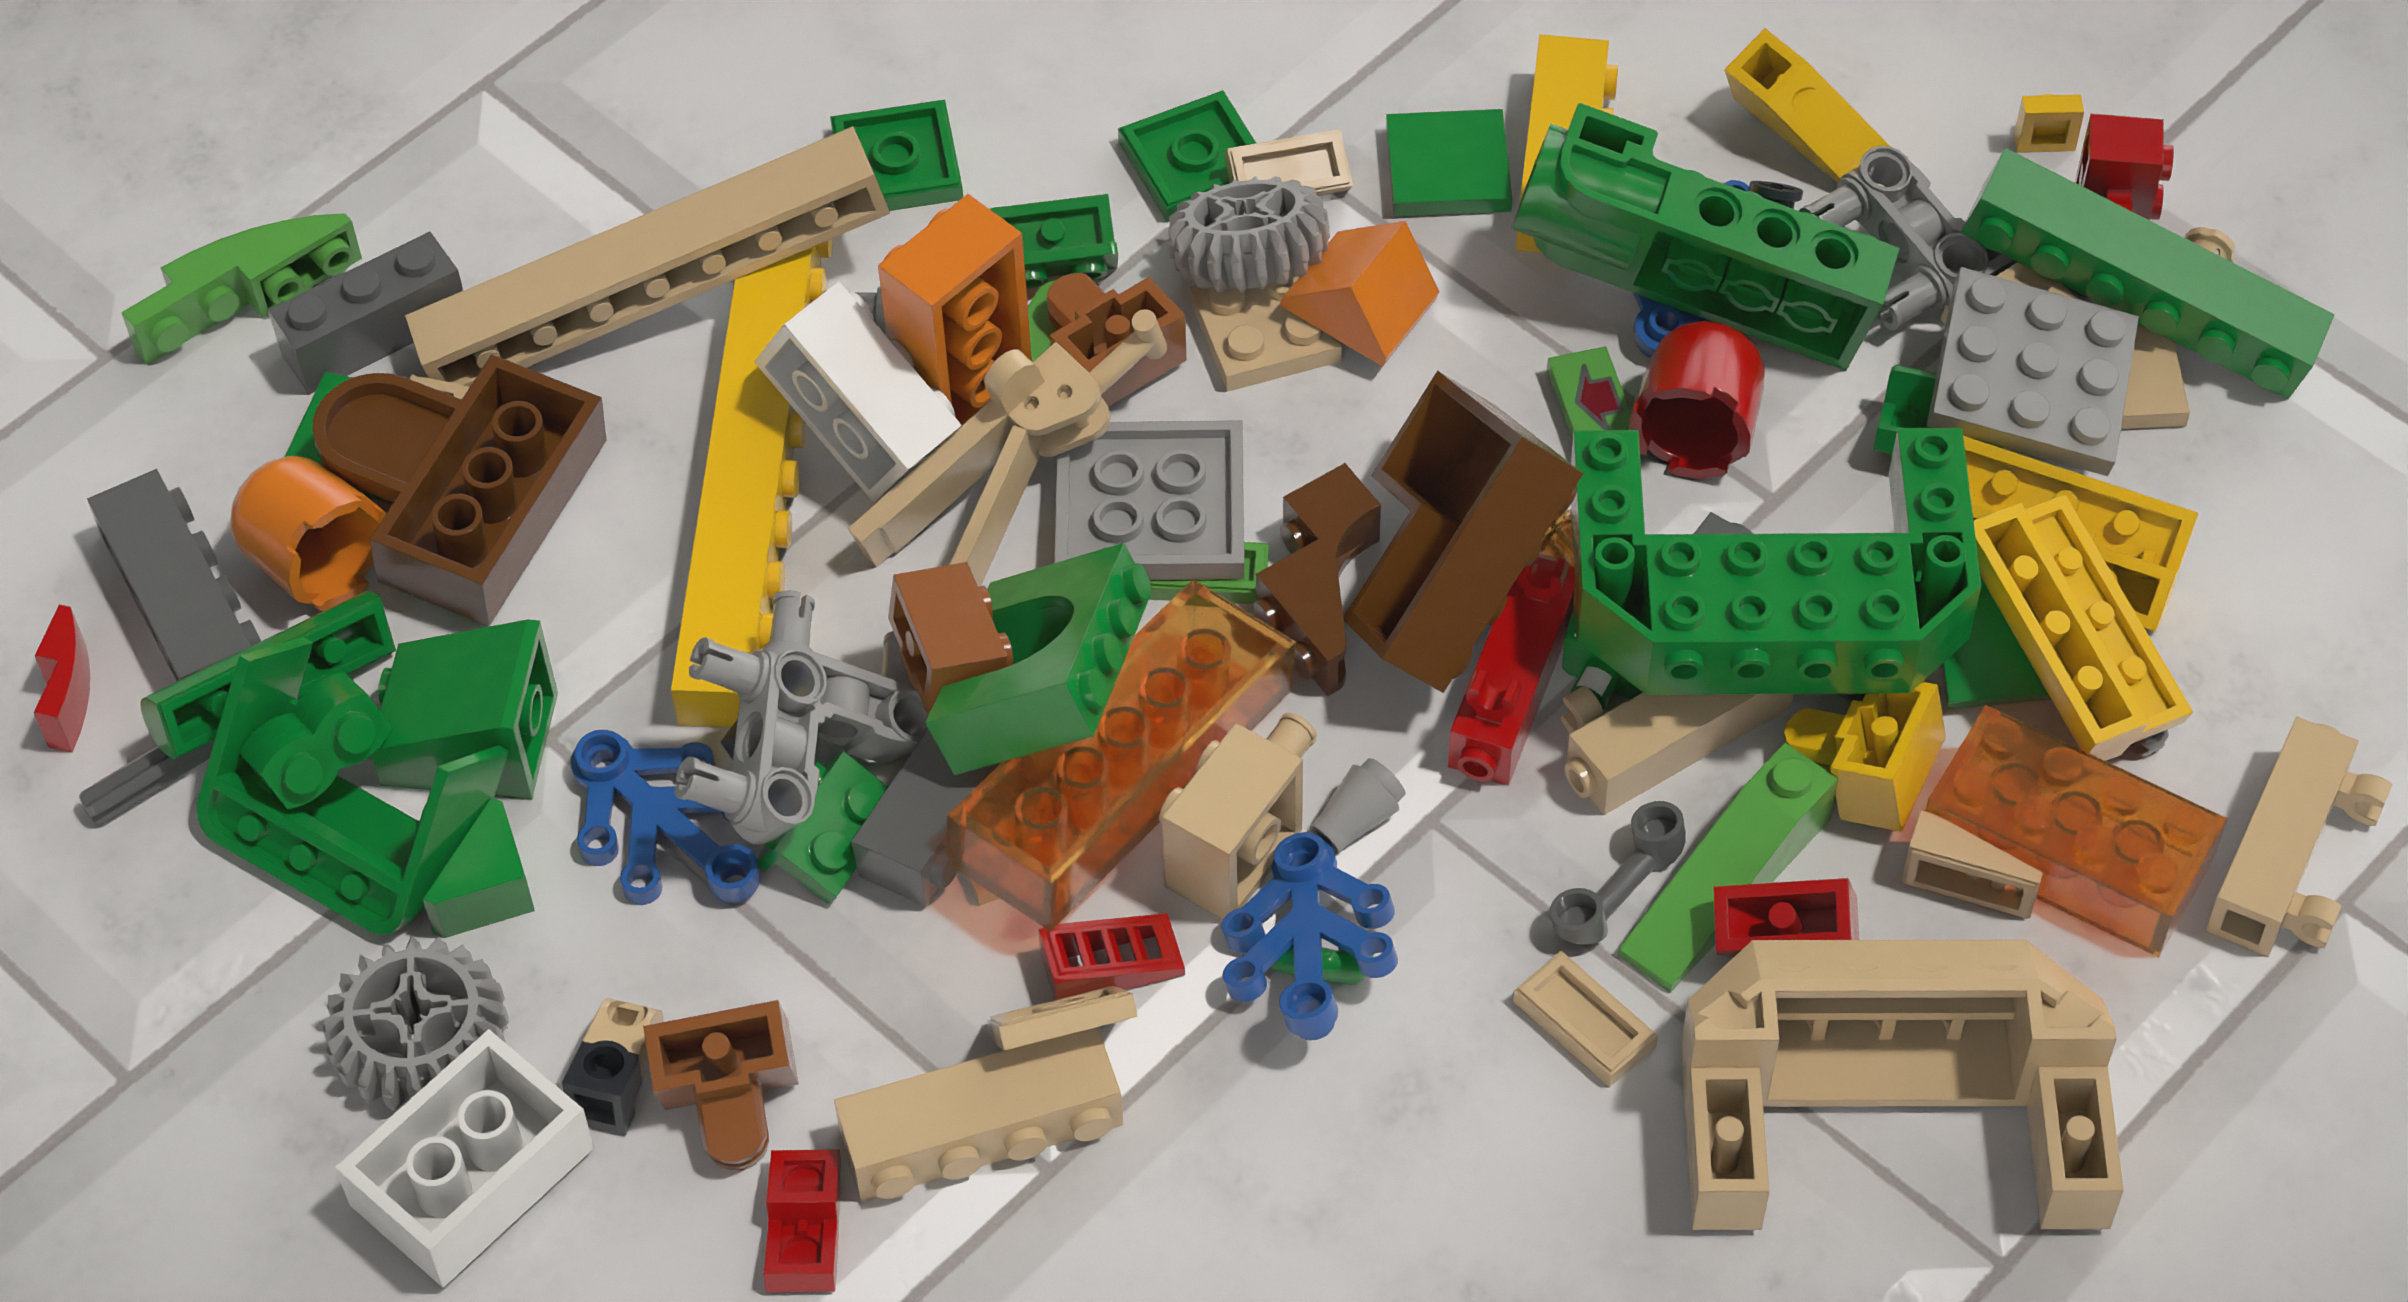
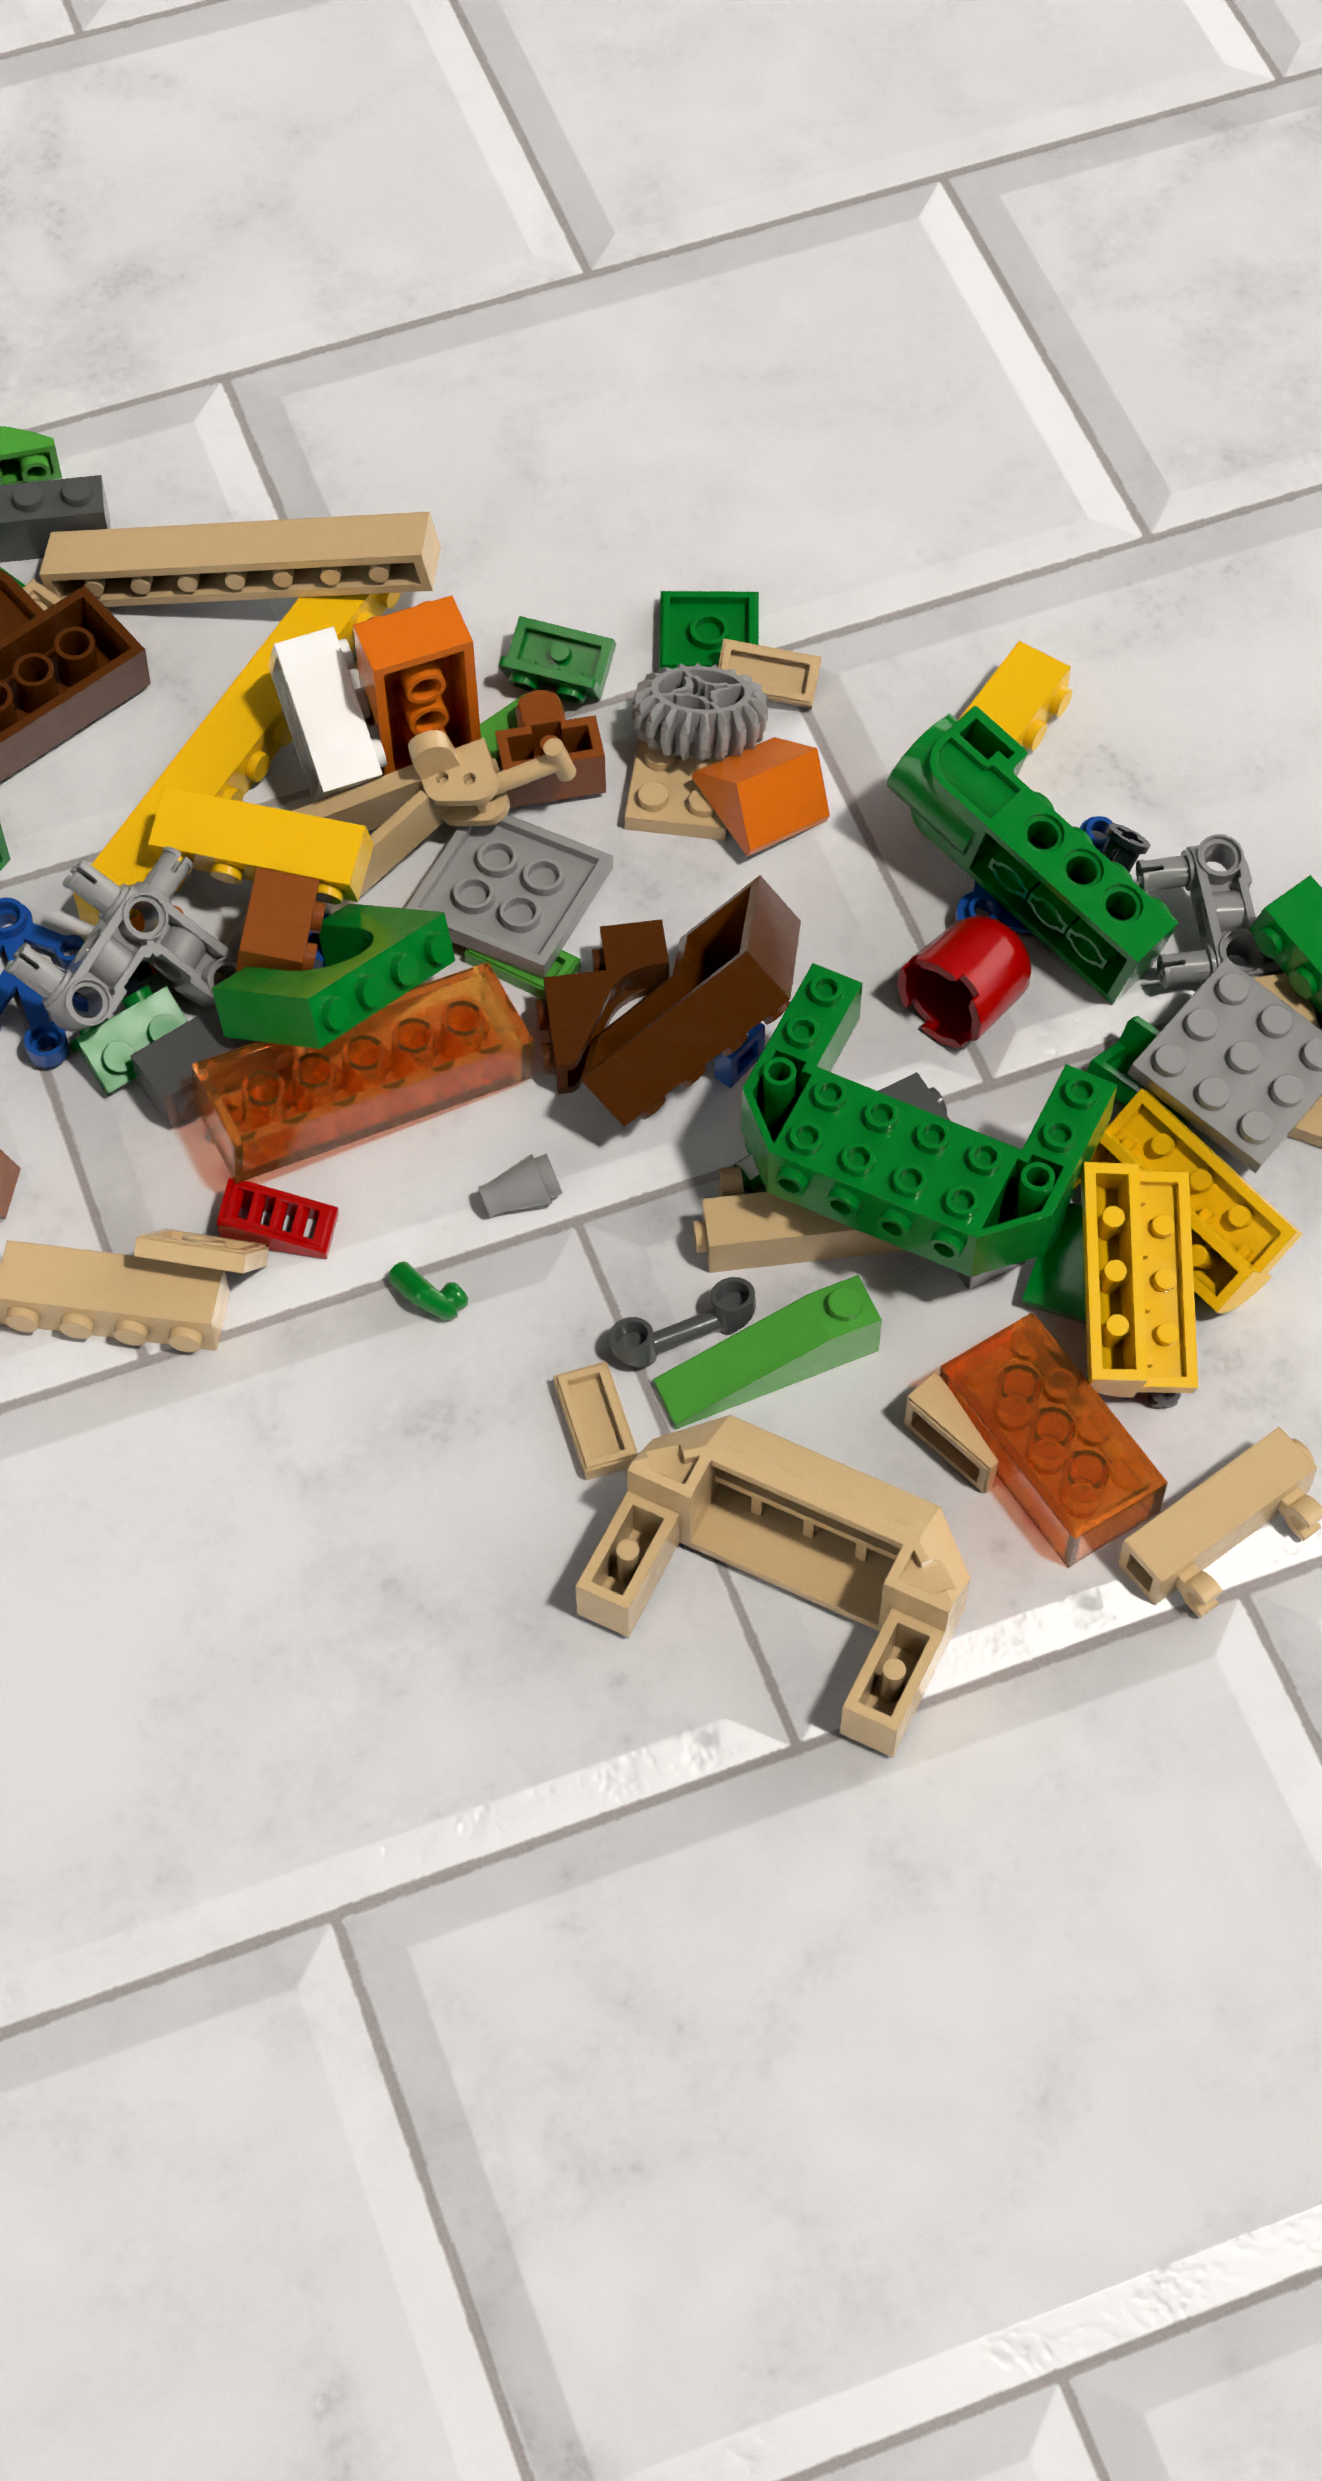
camera: 25 degrees right, 5 degrees up
(854, 551) = (239, 836): none -> yellow brick
(908, 152) = (487, 550): green tile -> none
(1235, 814) = (419, 1154): tan brick -> none
(1300, 870) = (452, 1215): blue plant -> none
(1448, 162) = (893, 711): green tile -> none
(1513, 673) = (687, 1141): red brick -> none
(1589, 391) = (892, 942): bright green tile -> none
(1784, 912) = (783, 1409): red slope -> none
(1800, 105) = (1196, 779): yellow slope -> none
(1875, 751) = (932, 1313): yellow brick -> none

